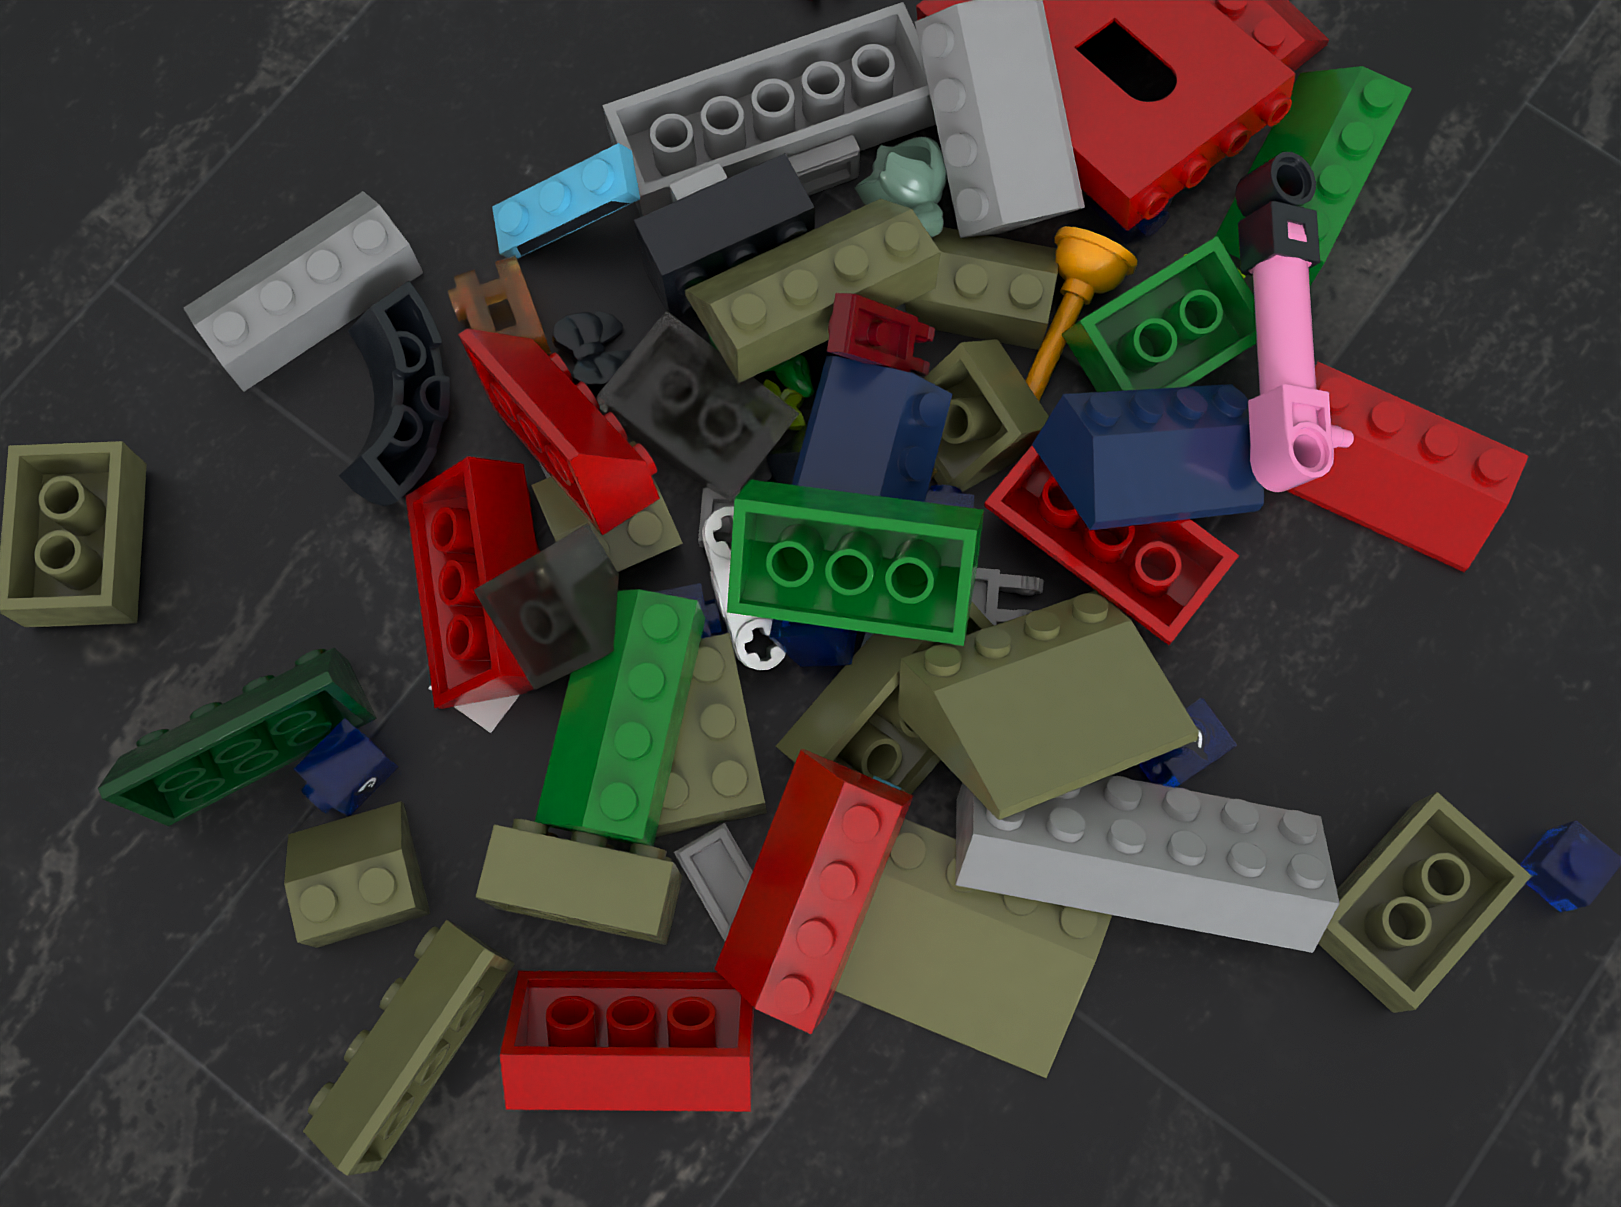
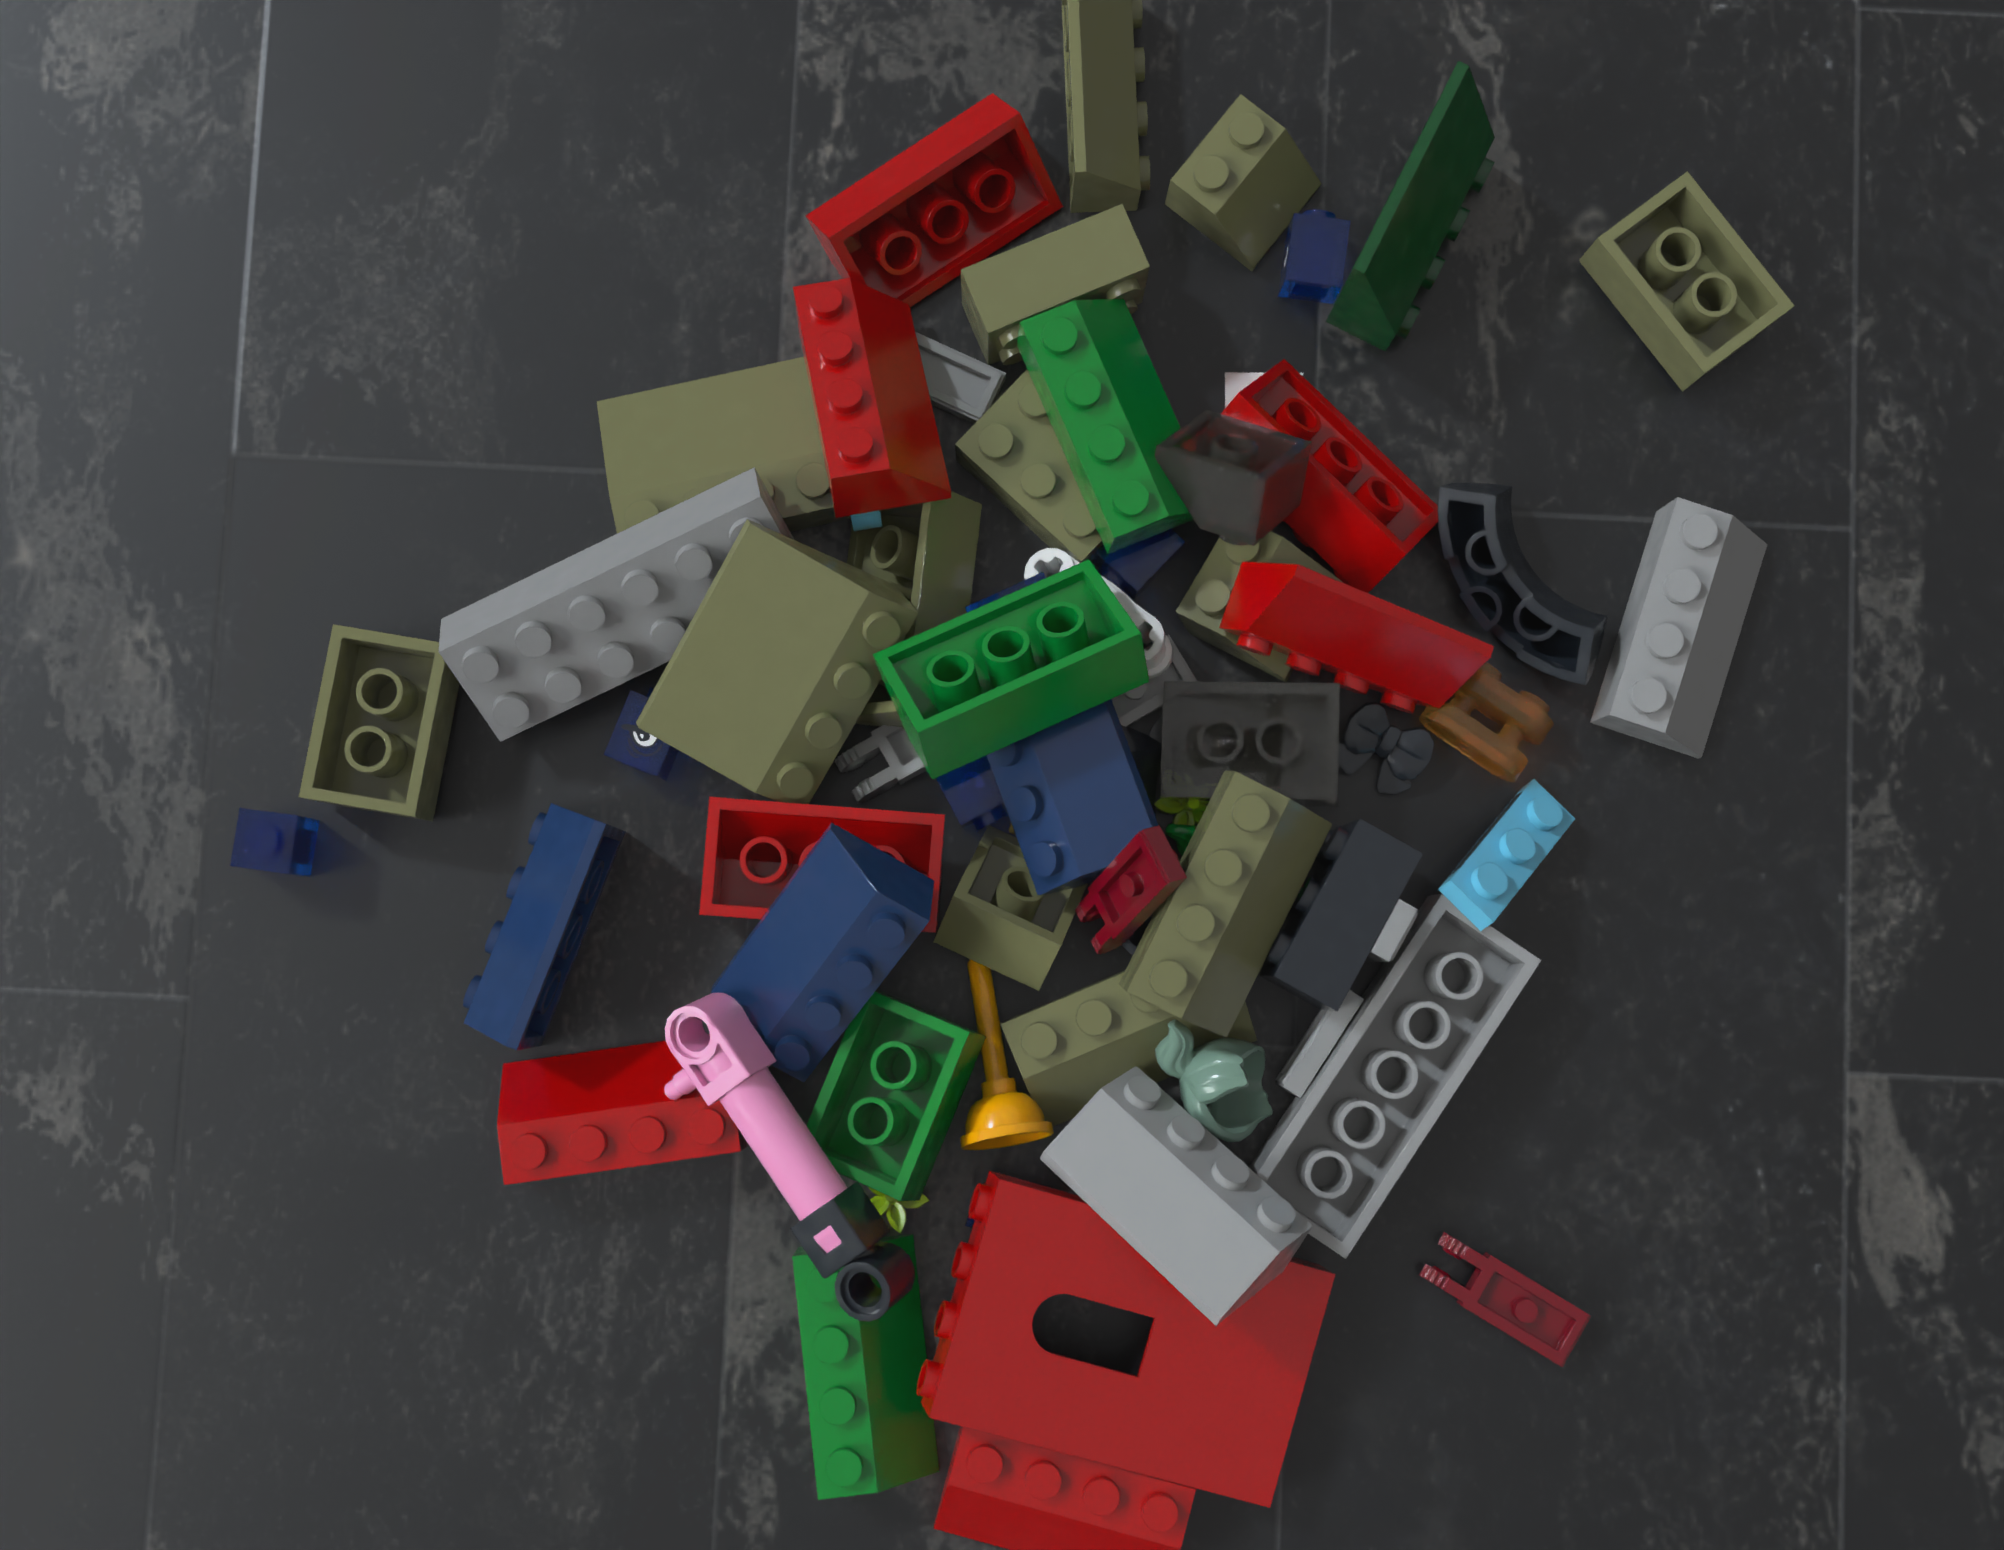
camera: 140 degrees right, 10 degrees up
(1374, 643) = (542, 928): none -> dark blue slope

